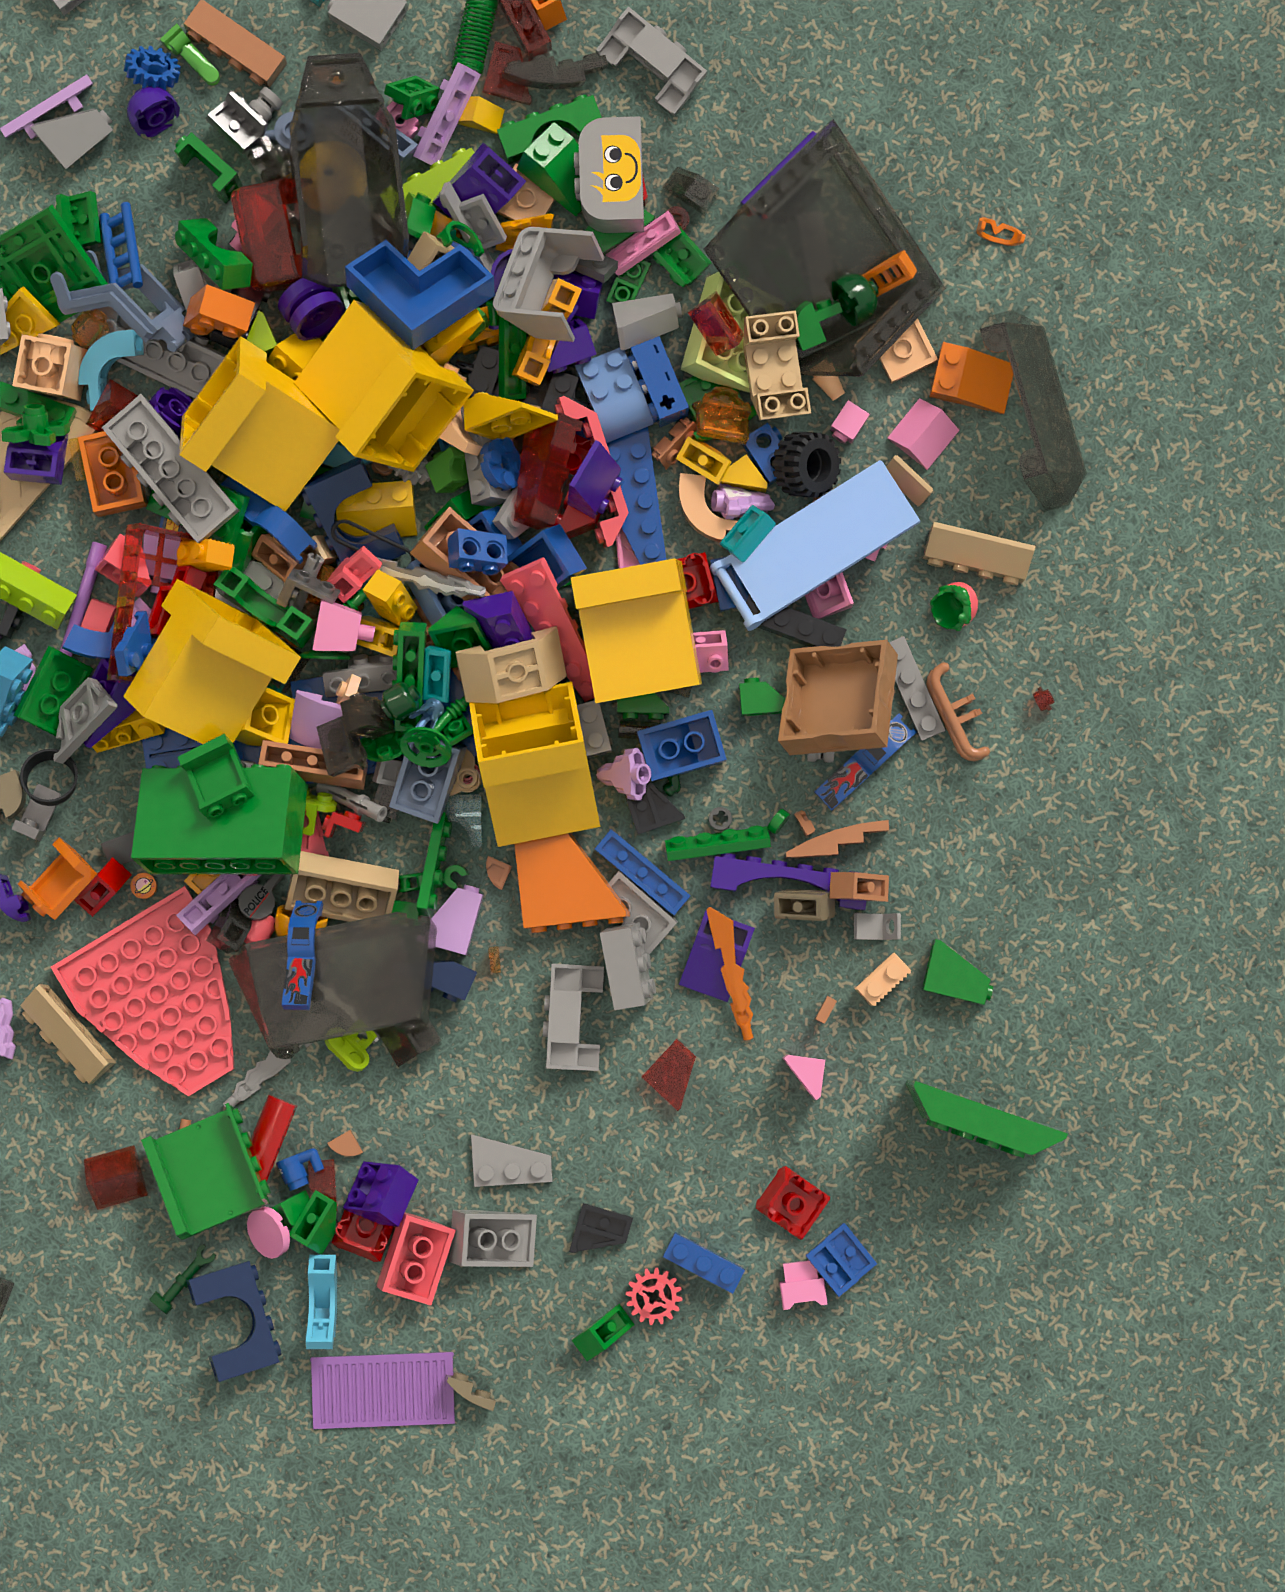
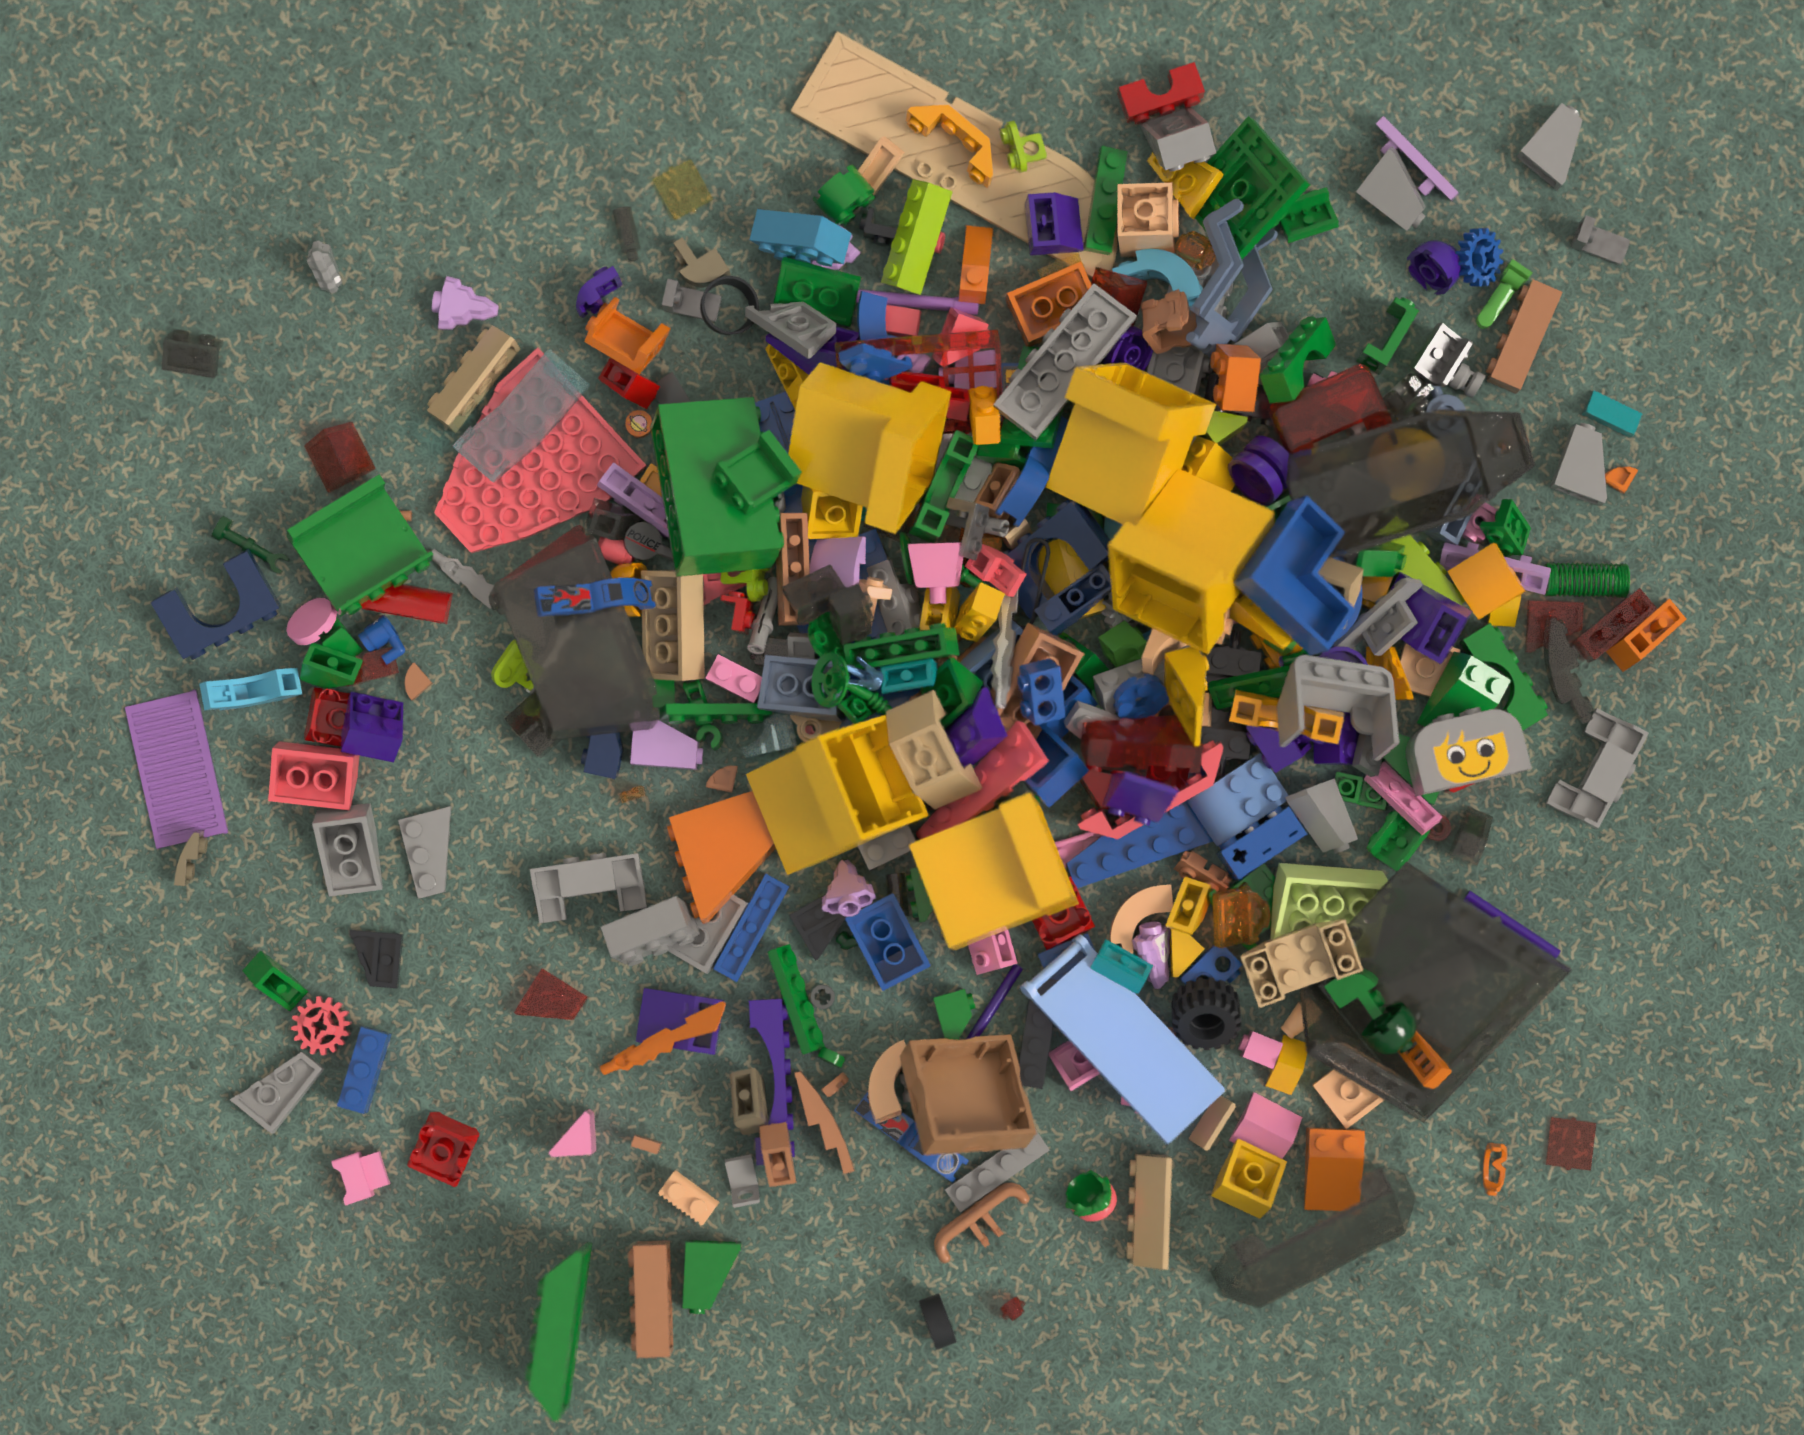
camera: 80 degrees right, 0 degrees up
(35, 427) = (1080, 217): green plant -> none
(59, 537) = (975, 264): none -> orange slope
(111, 243) = (1288, 253): blue bar -> none
(114, 991) = (522, 417): none -> clear light blue windscreen
(152, 366) = (1167, 322): none -> nougat piece
(397, 505) = (1075, 600): none -> dark blue slope
(400, 701) = (872, 644): dark green head -> none
(406, 840) = (735, 679): none -> bright pink brick
(448, 235) = (1370, 596): green helmet -> none
(457, 124) = (1486, 581): none -> light orange slope
(709, 1349) = (277, 1094): none -> light grey wing
(716, 324) = (1331, 891): clear red slope -> none
(757, 659) = (995, 1002): none -> dark purple bar
(820, 780) = (881, 1090): none -> light nougat arch
(841, 1259) = (394, 1210): blue slope -> none
(869, 399) = (1288, 1066): none -> yellow slope
(966, 457) = (1249, 1179): none -> yellow slope
(971, 1030) = (652, 1299): none -> nougat brick
(991, 159) = (1570, 1143): none -> clear red piece
(1042, 770) = (937, 1321): none -> black tyre

